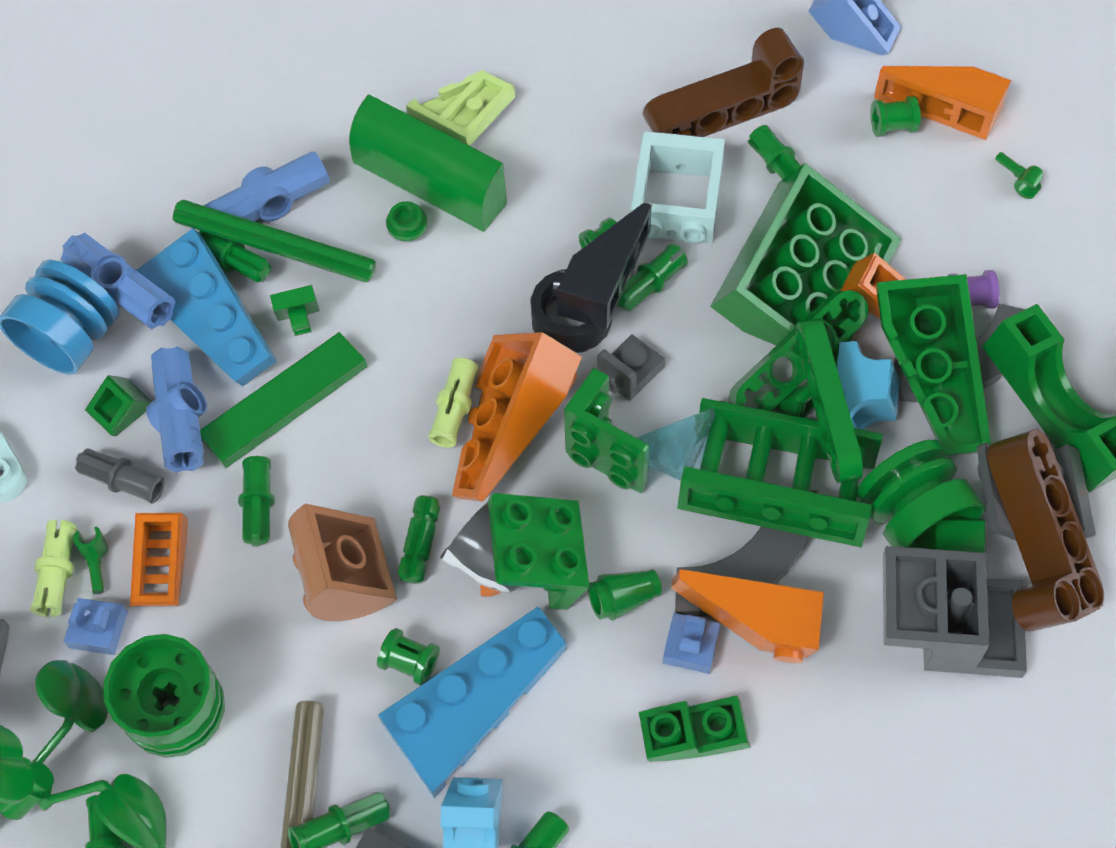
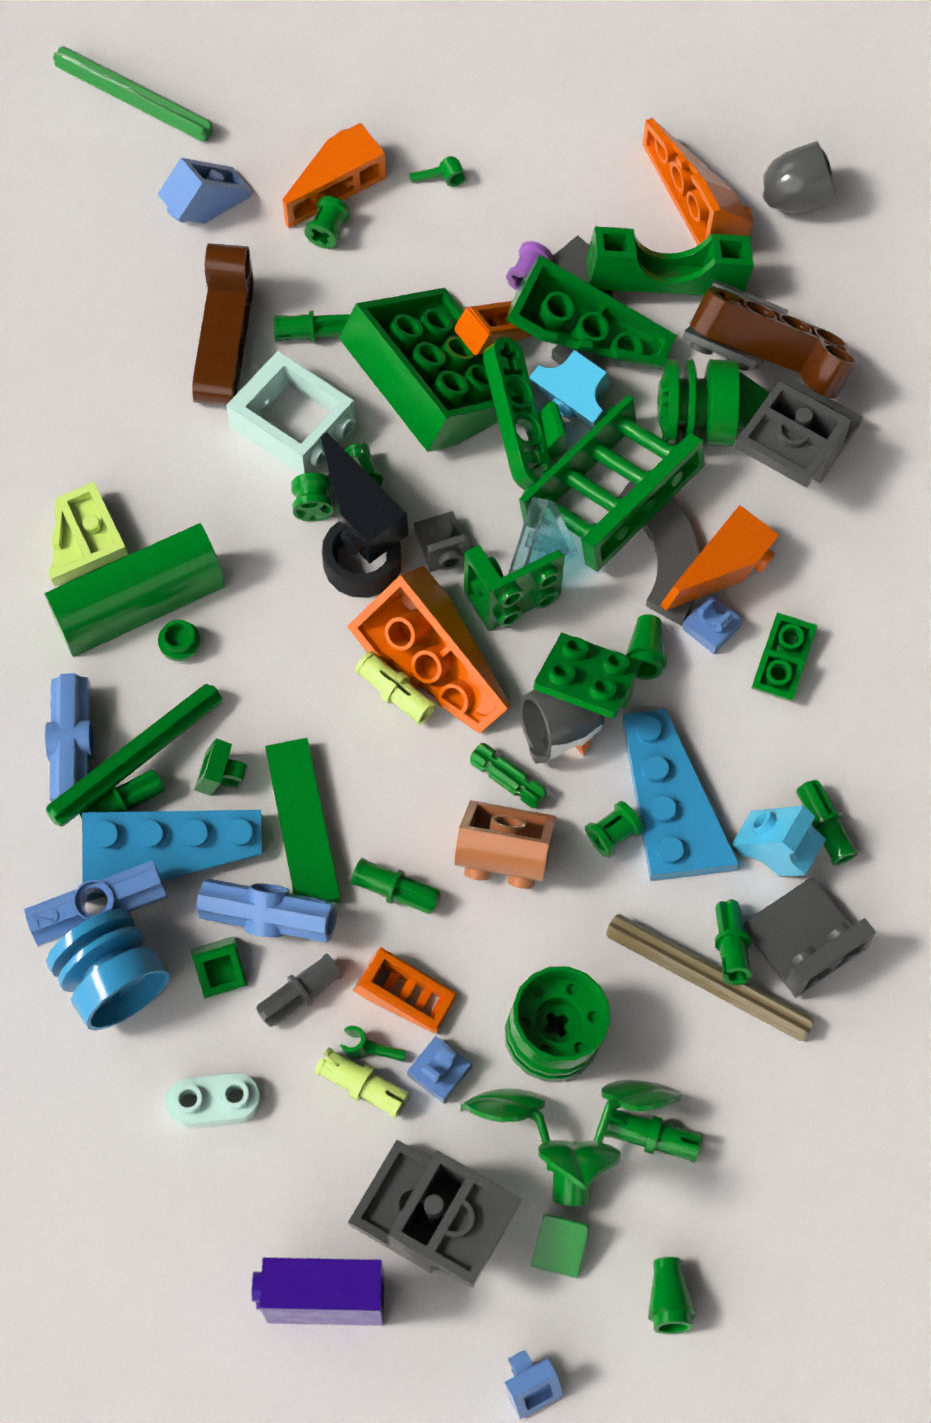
camera: 65 degrees left, 5 degrees up
(829, 401) = (584, 409): green beam -> none

